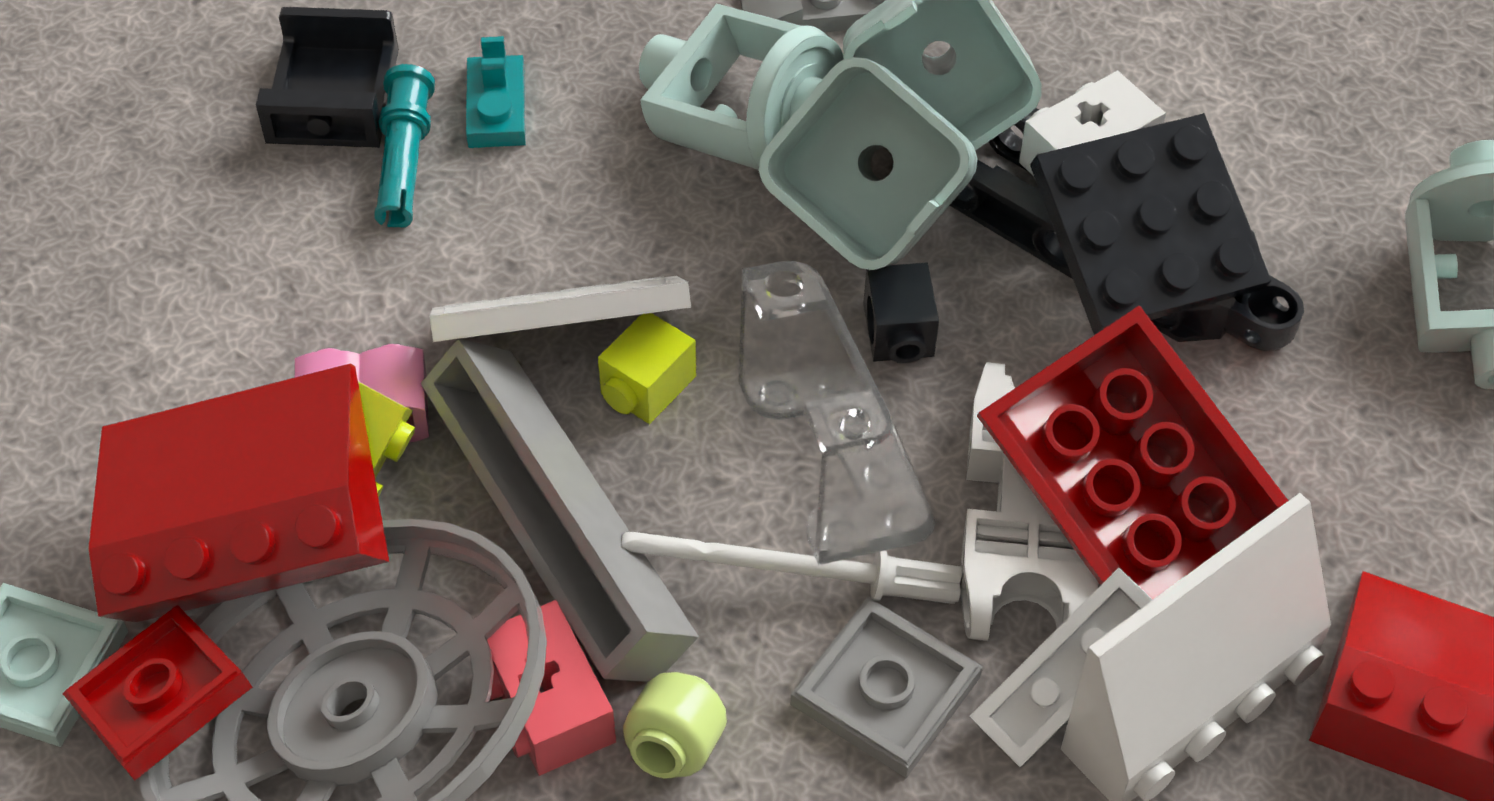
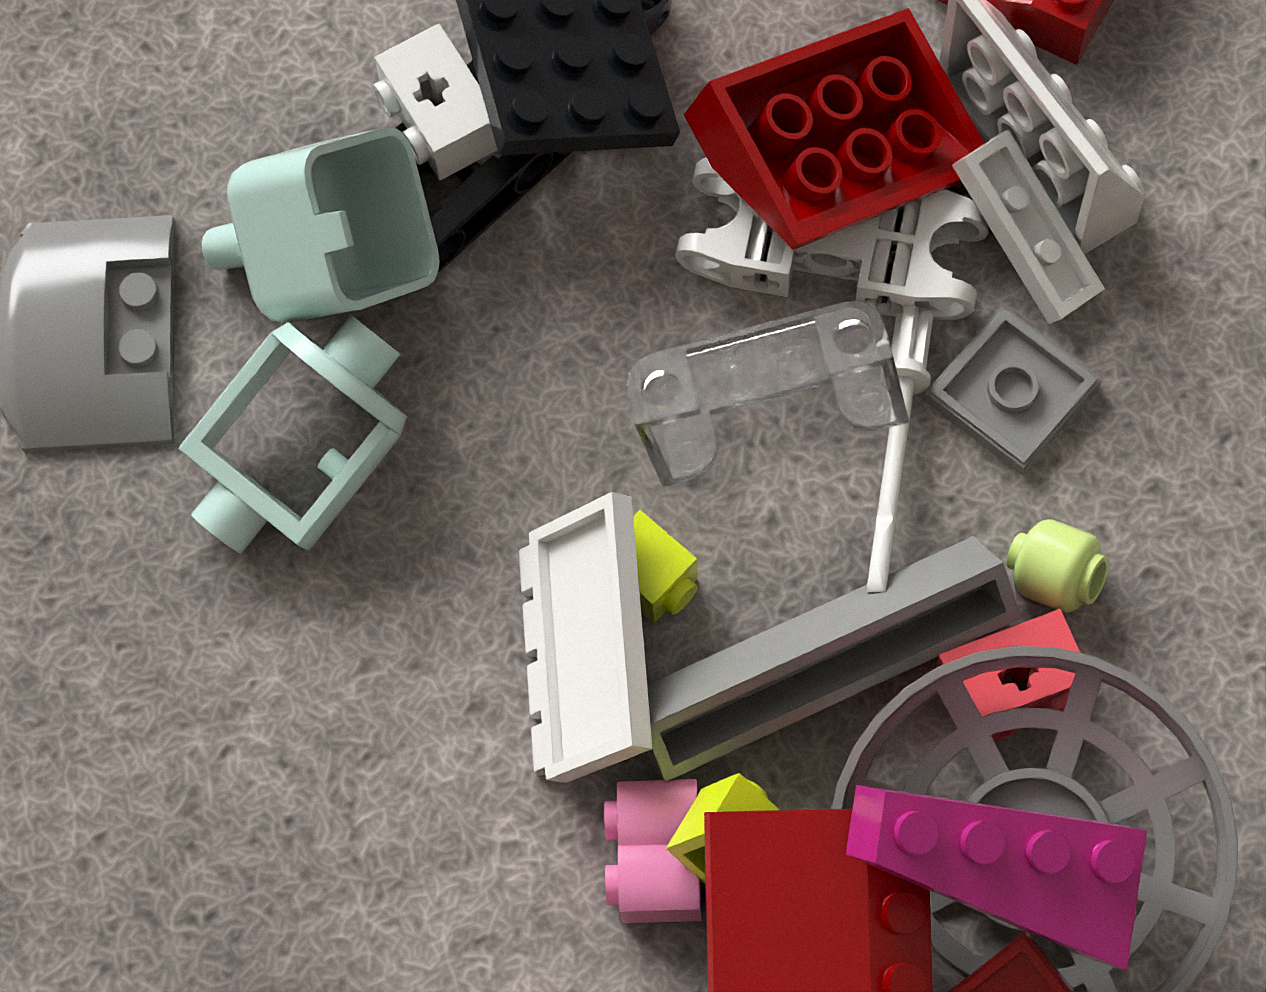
camera: 80 degrees left, 15 degrees up
(284, 609) = (1027, 868): none -> dark pink wedge
(329, 77) = (185, 897): black panel -> none
(404, 125) = (273, 810): teal pin -> none
(495, 97) = (234, 715): teal plate -> none
(825, 172) = (485, 301): light aqua piece -> none
(901, 312) = (603, 323): black brick -> none

